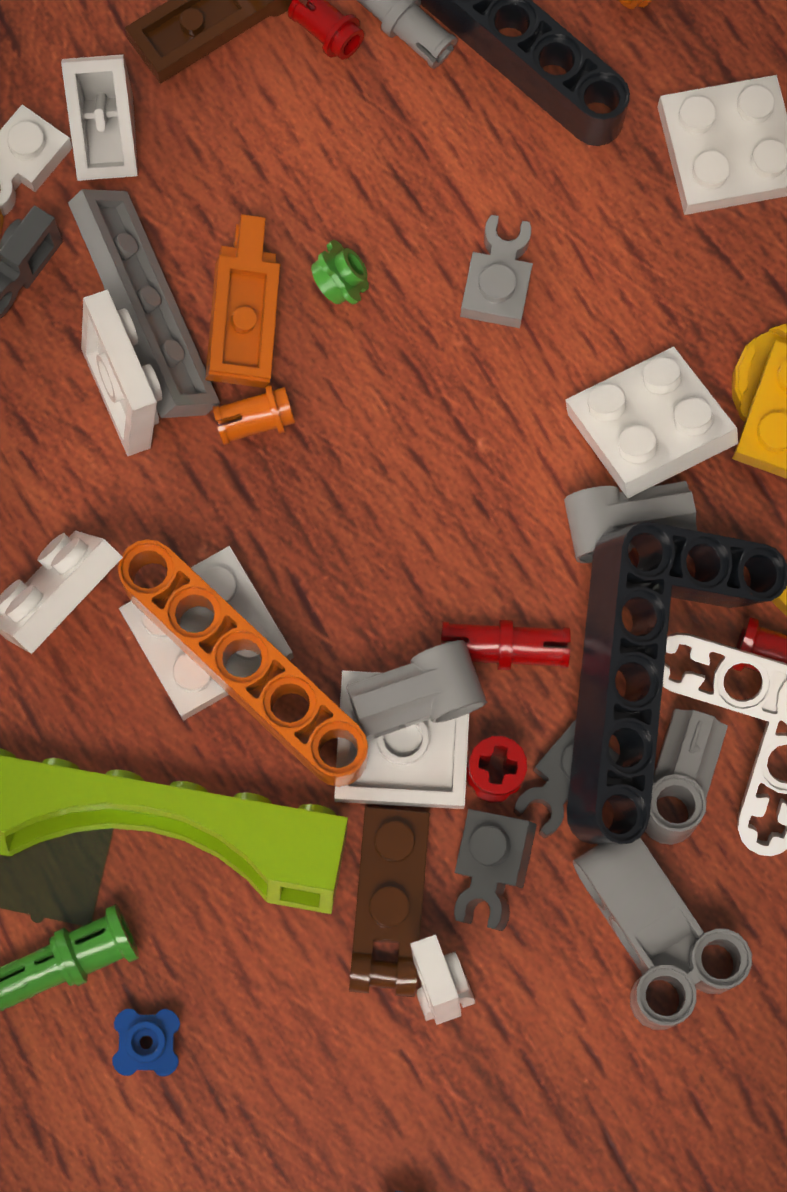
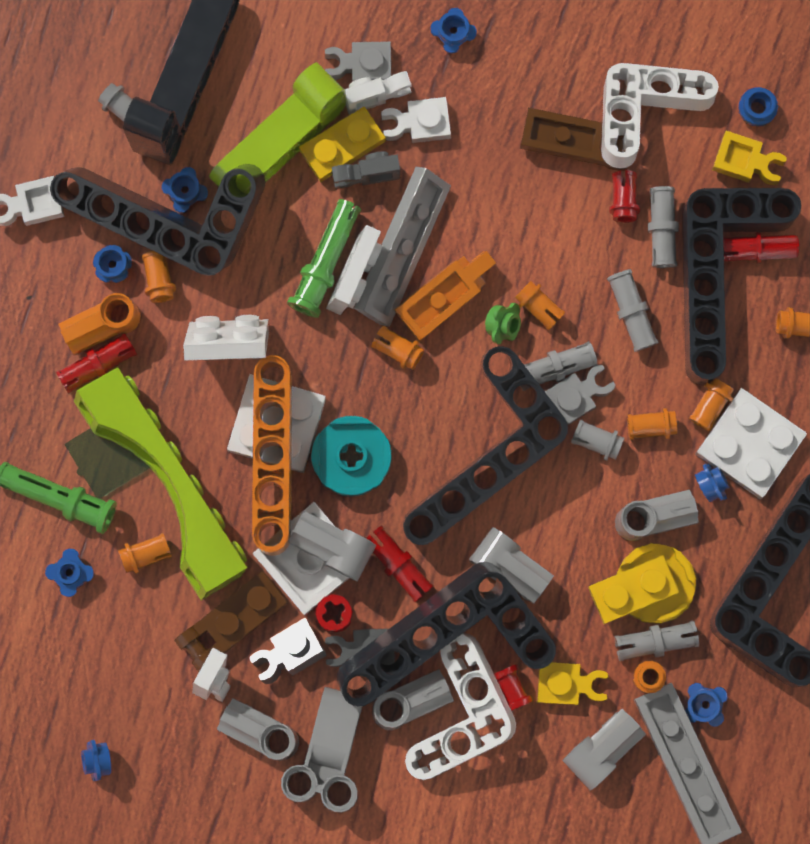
camera: 50 degrees right, 5 degrees up
(80, 423) = (318, 274): none -> bright green pin
(100, 116) = (472, 141): white slope -> none
(210, 928) = (144, 553): none -> orange pin
(328, 546) = (335, 473): none -> teal plate
(358, 219) = (537, 302): none -> orange pin
(444, 265) = (560, 364): none -> light grey pin
(461, 128) = (632, 310): none -> light grey pin
(489, 415) = (495, 456): none -> black beam
(547, 992) = (255, 729): none -> light grey piece
(573, 296) = (598, 440): none -> light grey pin
(620, 213) = (652, 424): none -> orange pin
(648, 143) = (711, 404): none -> orange pin
(651, 422) = (568, 533): white plate -> none
(721, 309) = (659, 515): none -> light grey piece
(739, 219) = (712, 483): none -> blue plate

